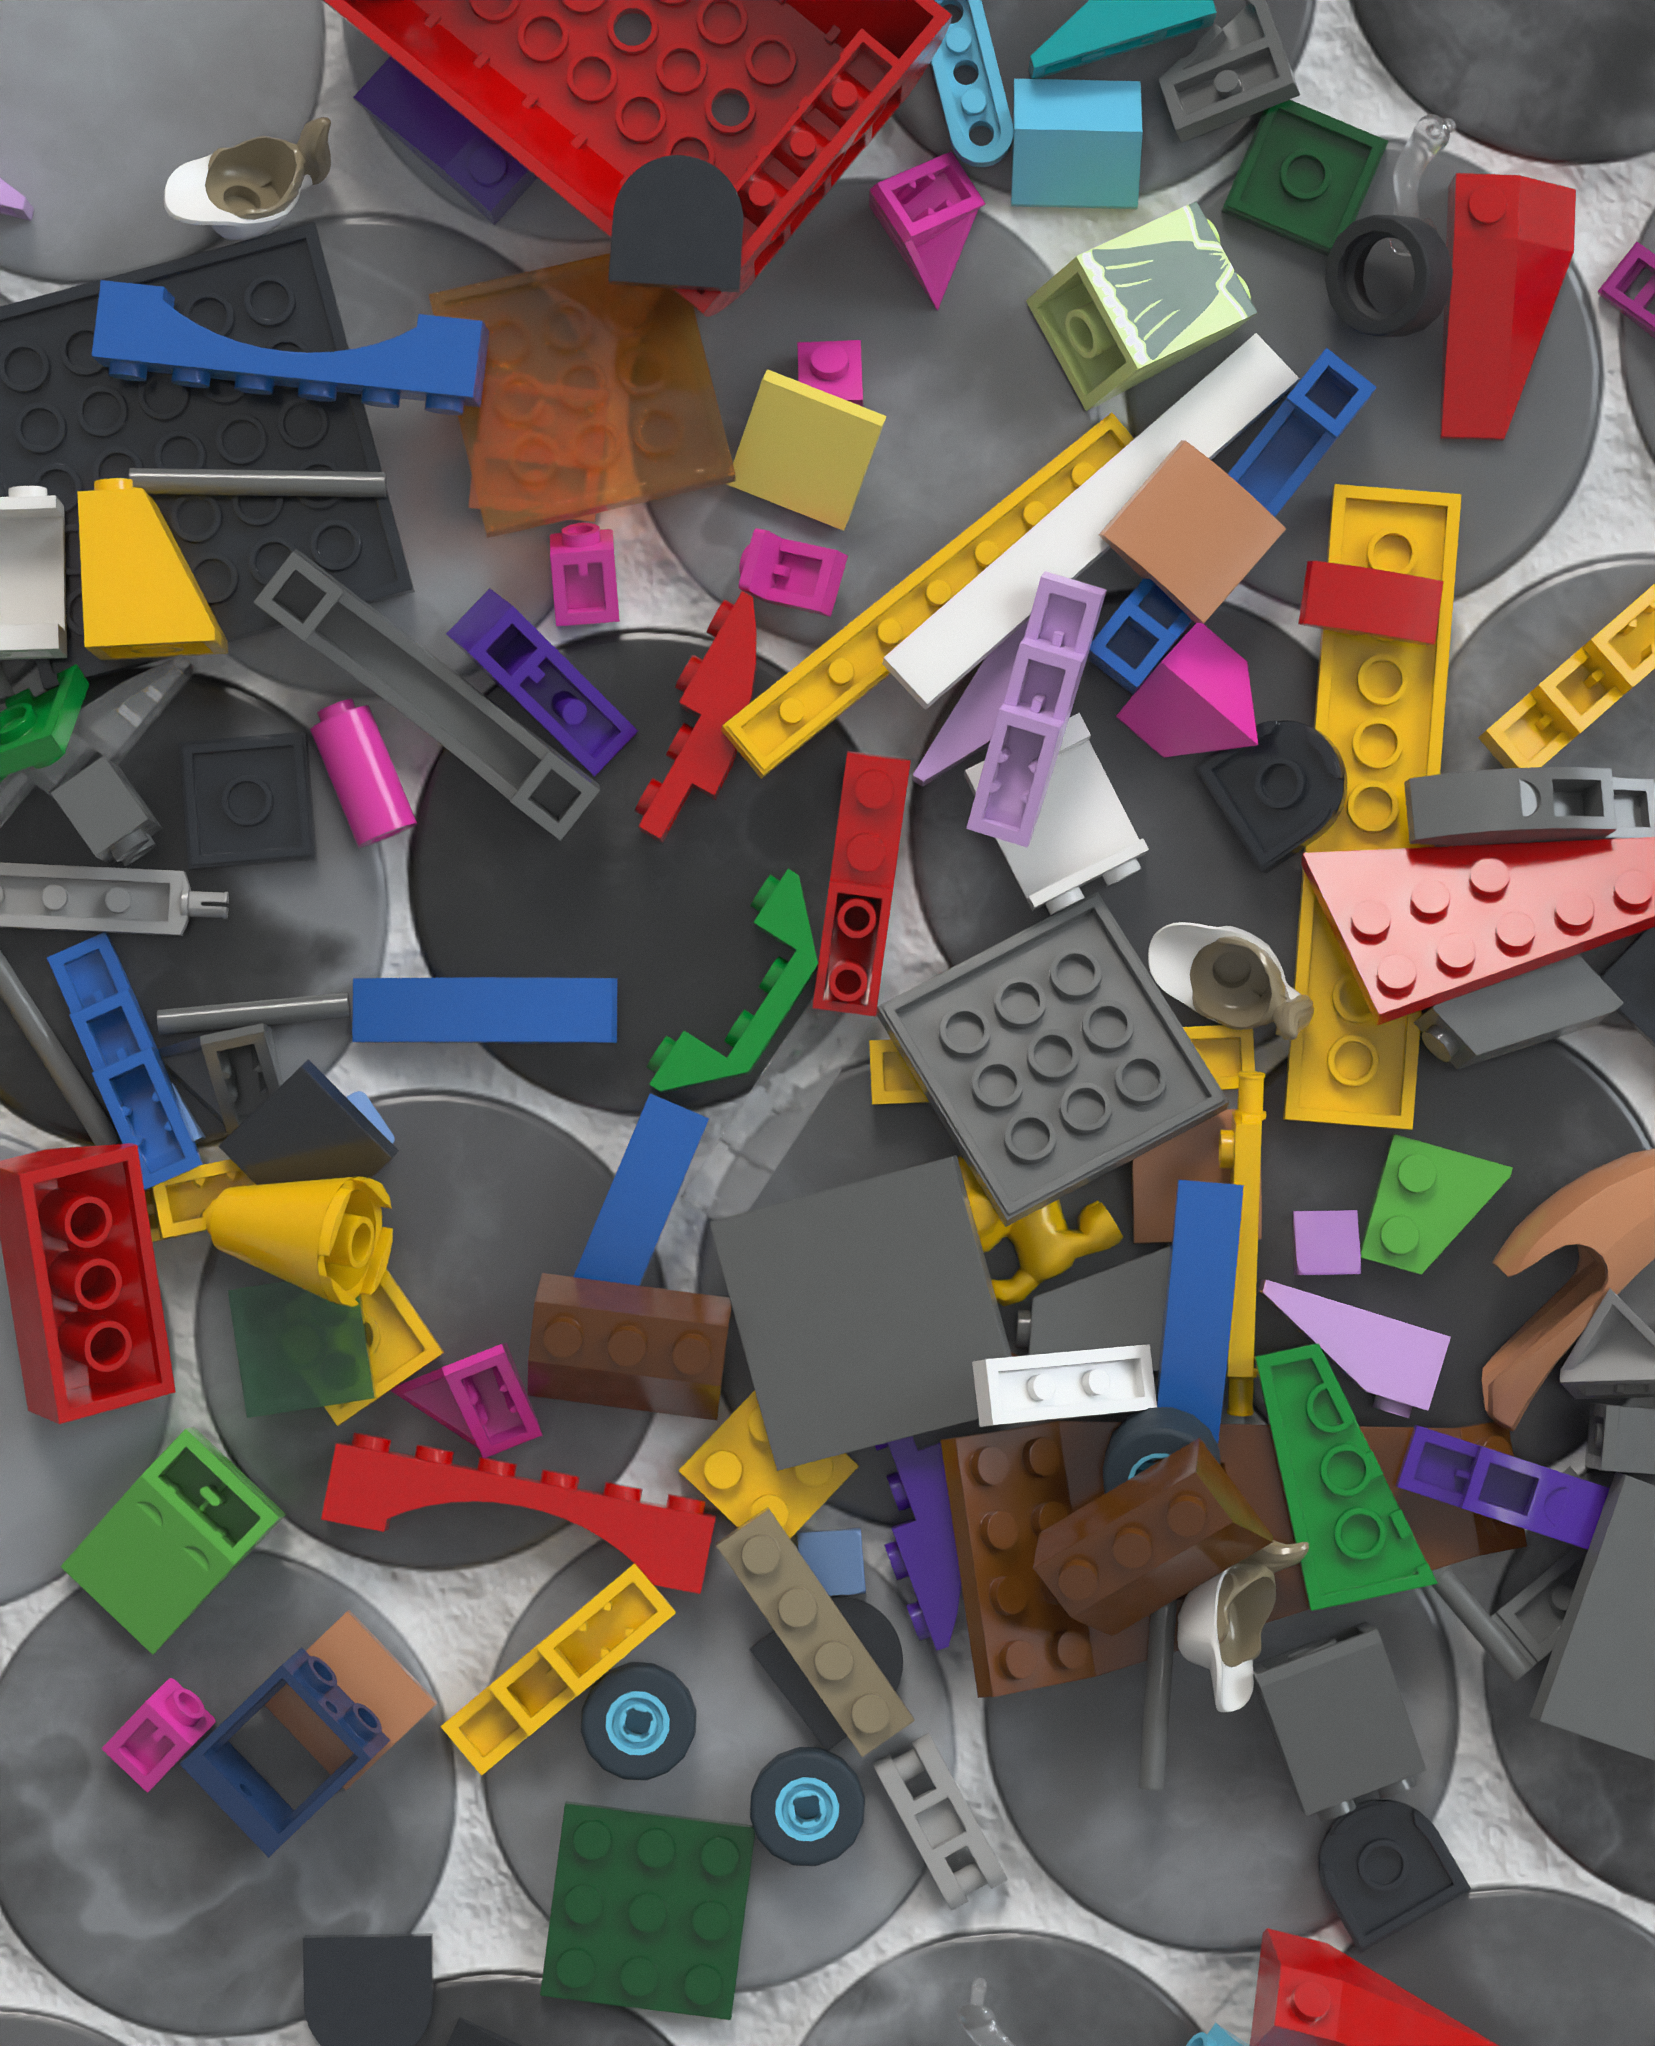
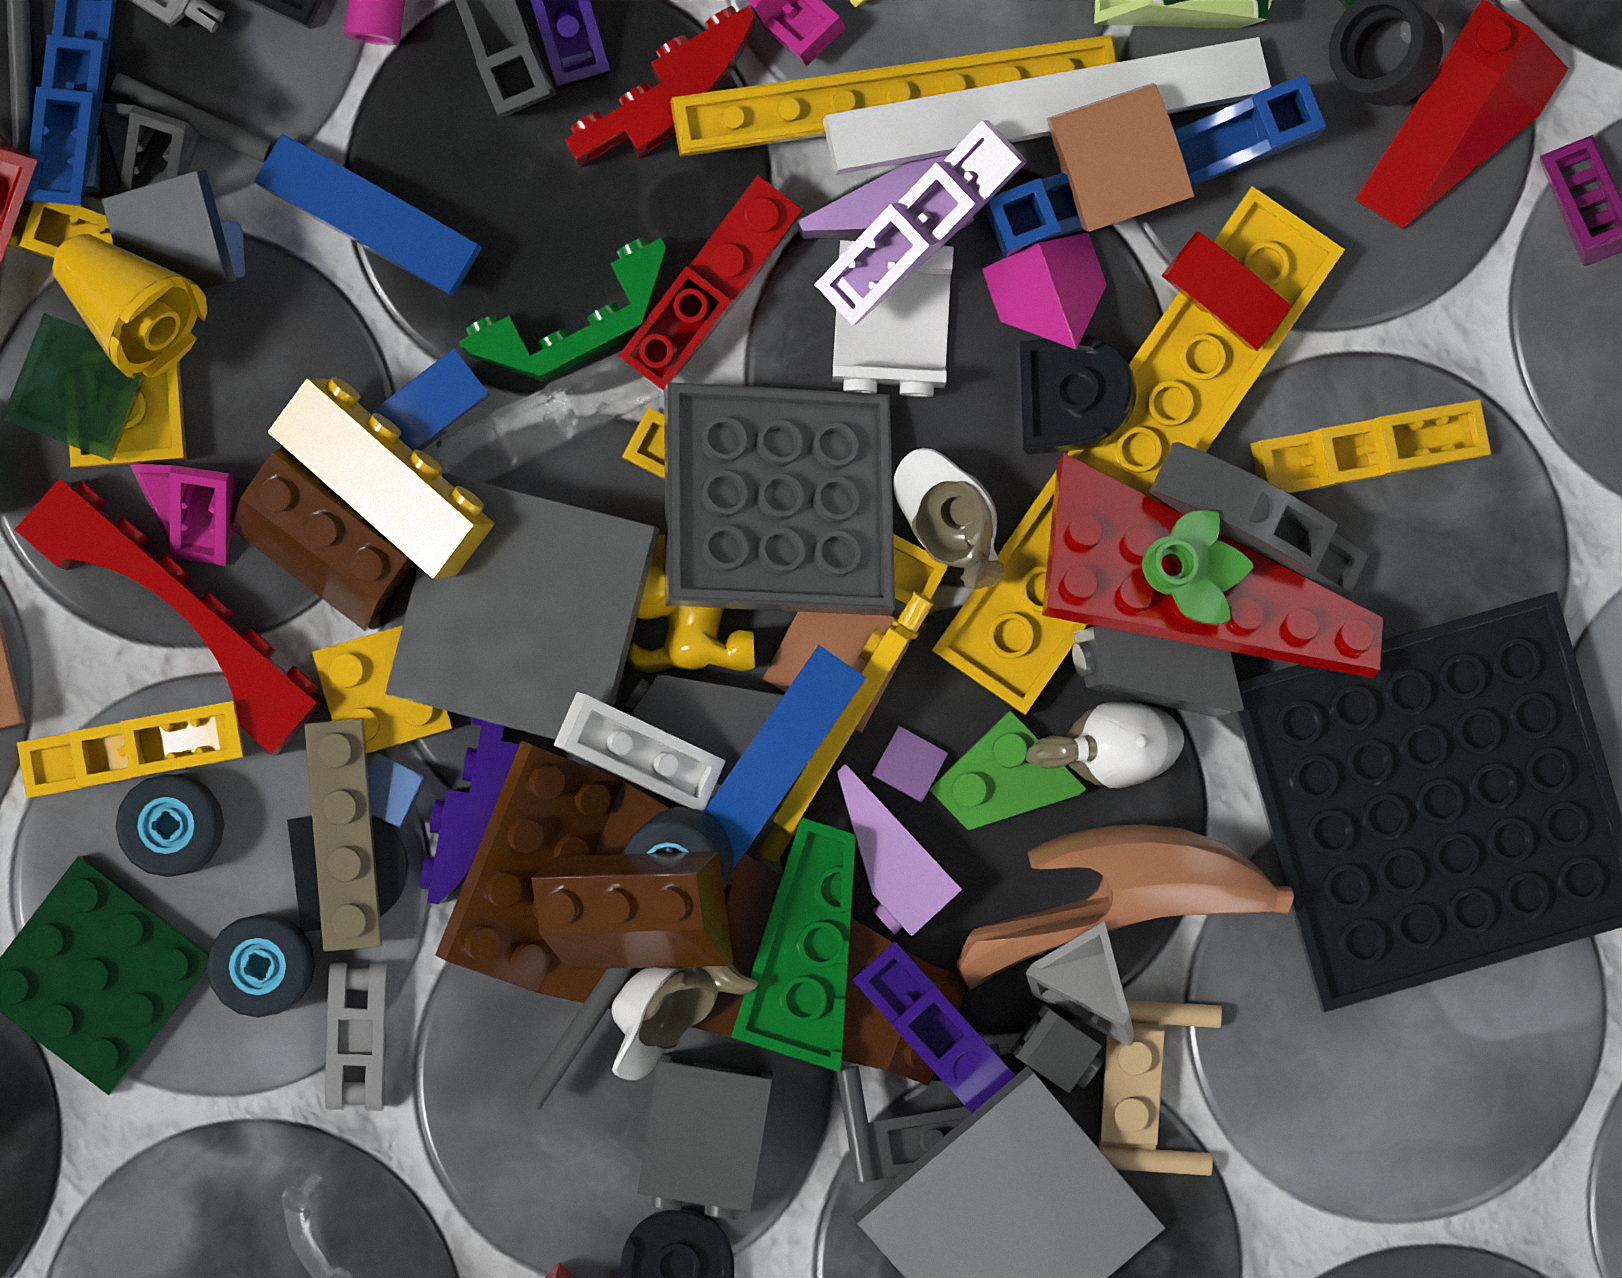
camera: 25 degrees right, 0 degrees up
(654, 1259) = (382, 476): none -> brick
(1506, 888) = (1202, 565): none -> bright green plate
(1516, 1109) = (1114, 745): none -> white hair

